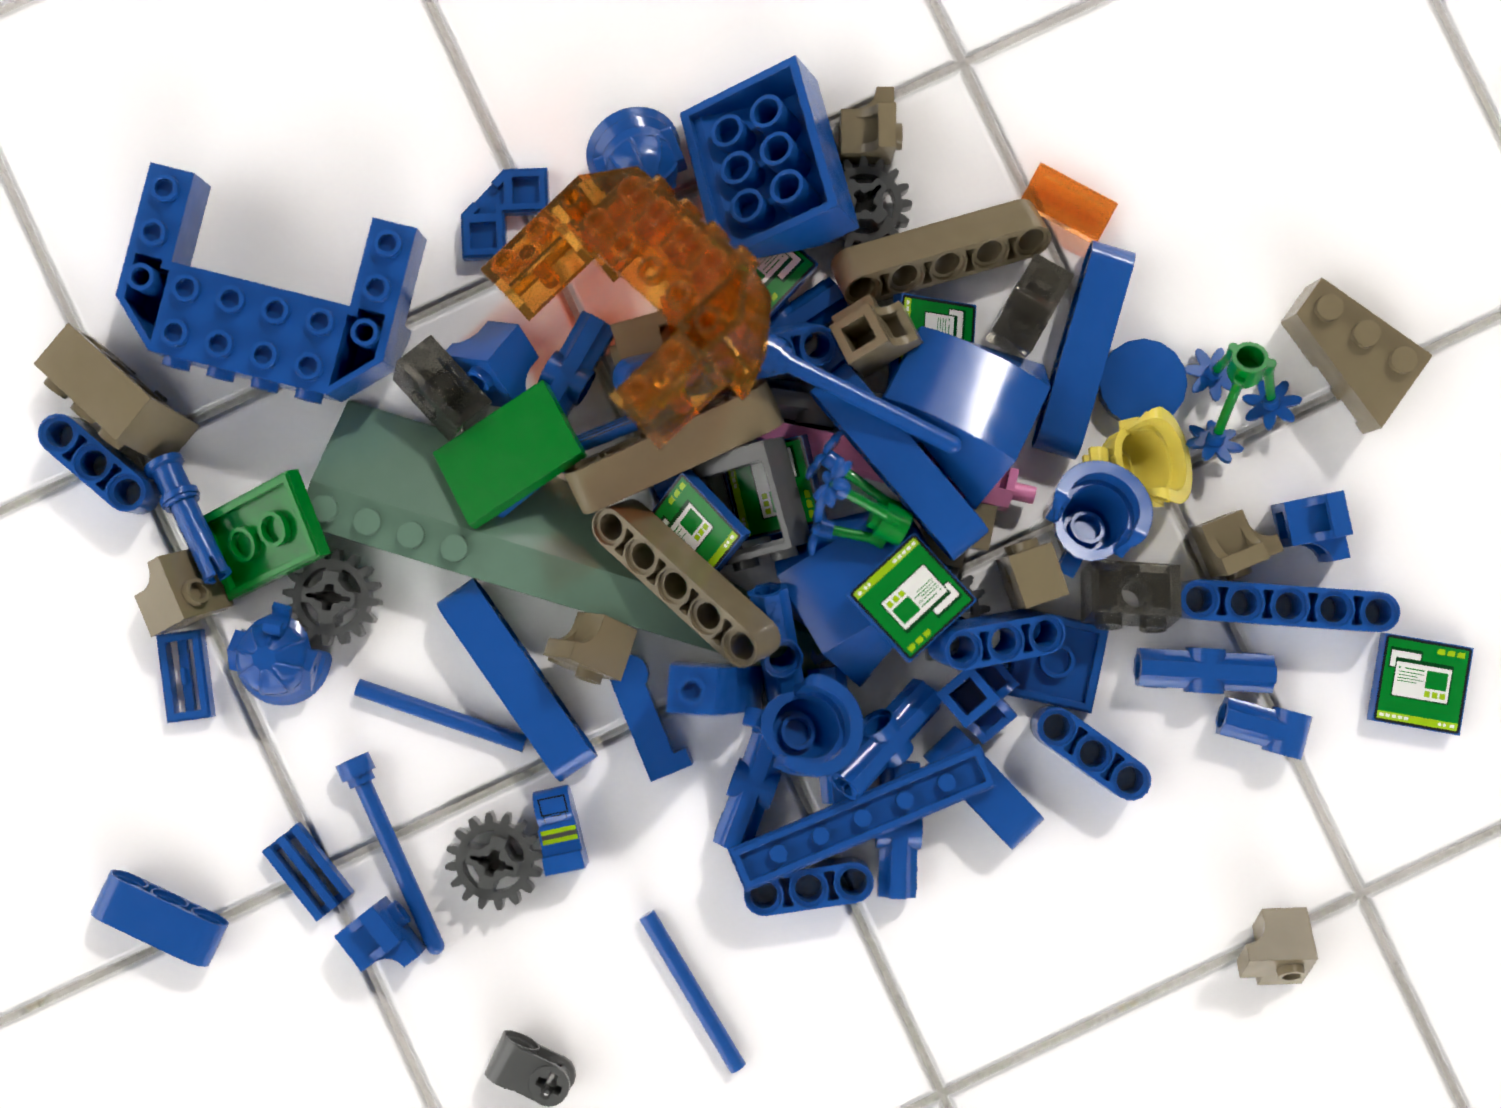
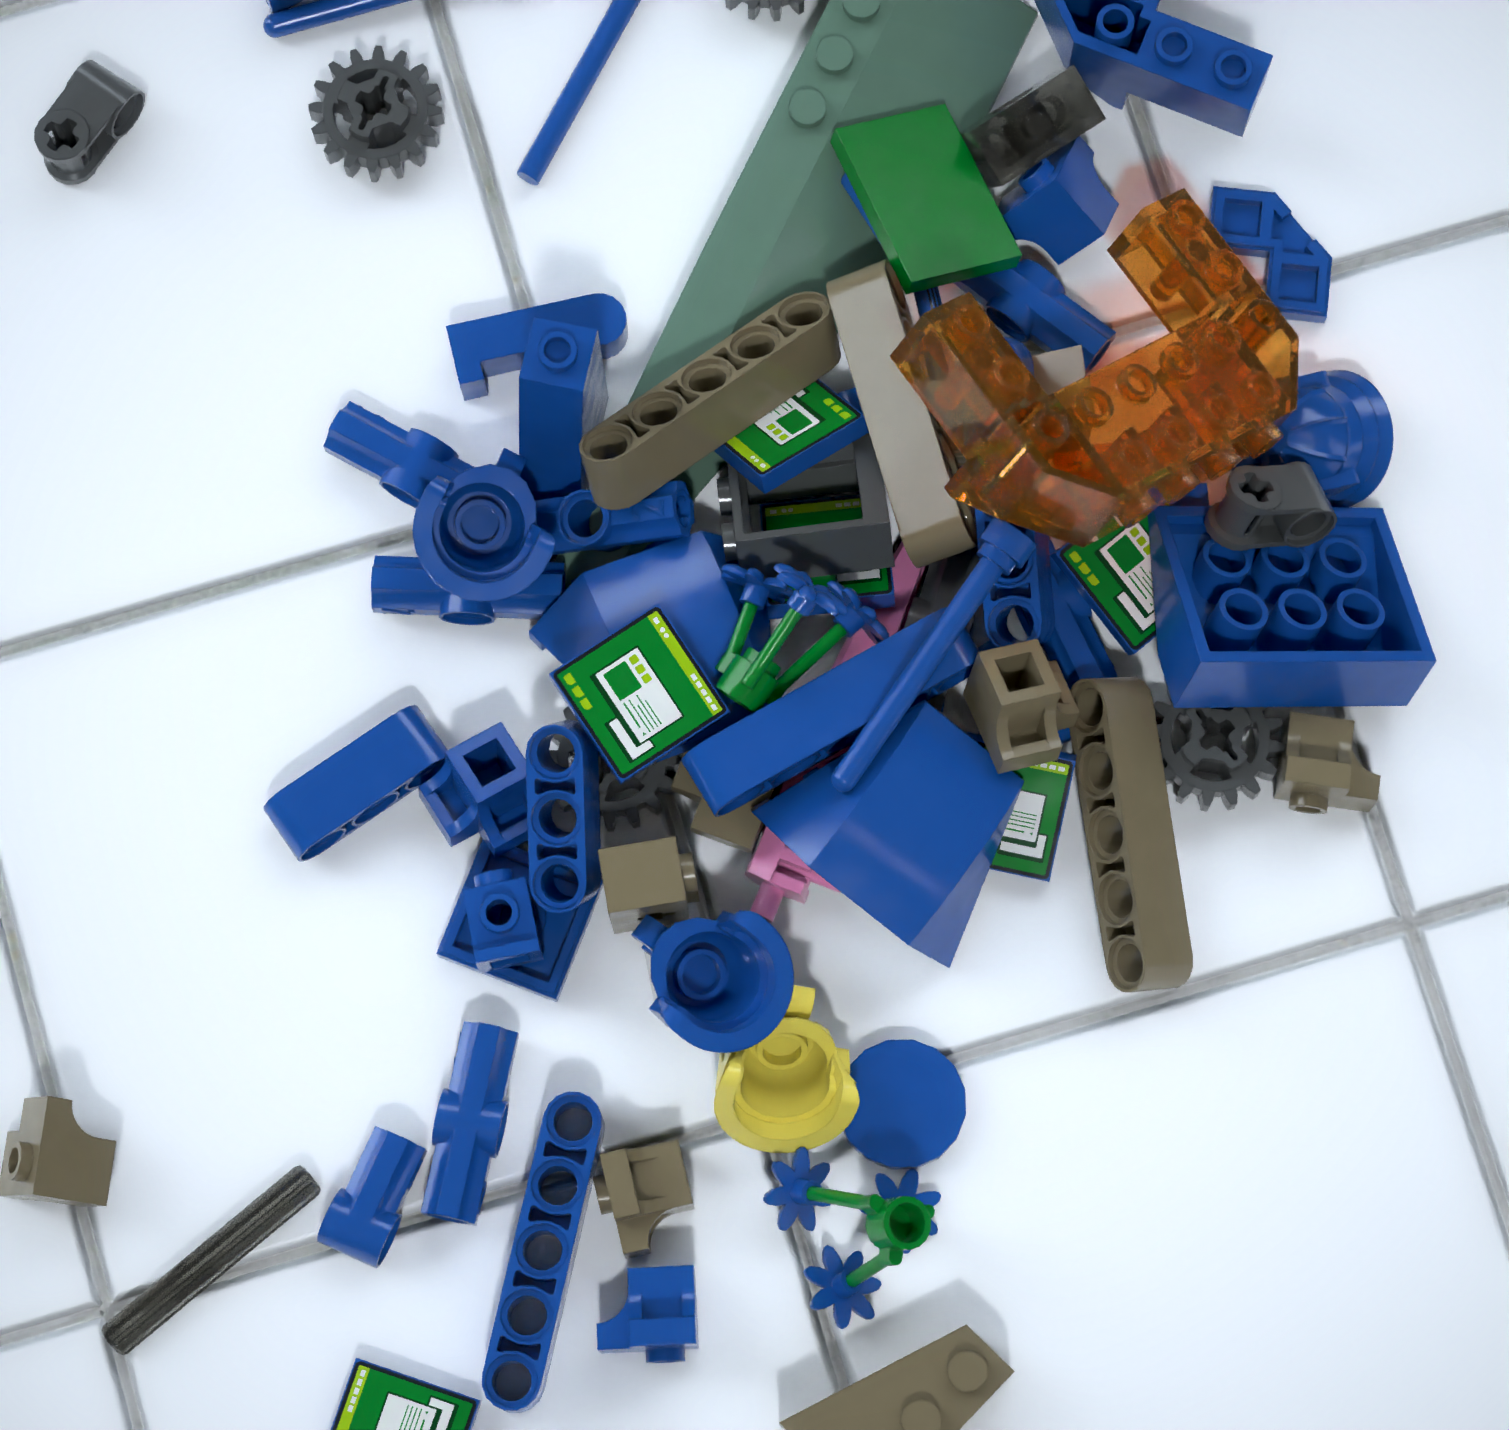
camera: 105 degrees right, 10 degrees down
(517, 679) = (615, 177): blue beam -> none
(559, 831) = (400, 203): blue leg -> none
(593, 648) = (641, 275): dark tan brick -> none
(692, 991) = (149, 351): blue bar -> none
(706, 179) = (1271, 508): none -> dark grey piece
(829, 894) = (258, 492): blue beam -> none
(855, 822) = (347, 599): blue tile -> none
(887, 738) = (449, 647): blue piece -> none
(899, 849) = (321, 657): blue piece -> none
(1029, 306) = (1033, 950): clear smoke brick -> none
(1069, 203) = (1181, 1040): clear orange tile -> none
(1083, 349) = (962, 1022): blue beam -> none
(1086, 659) = (504, 944): none -> blue brick
(1110, 759) = (388, 907): blue beam -> none
(1154, 585) = (622, 1000): clear smoke brick -> none
(1321, 830) = (210, 1260): none -> clear smoke axle

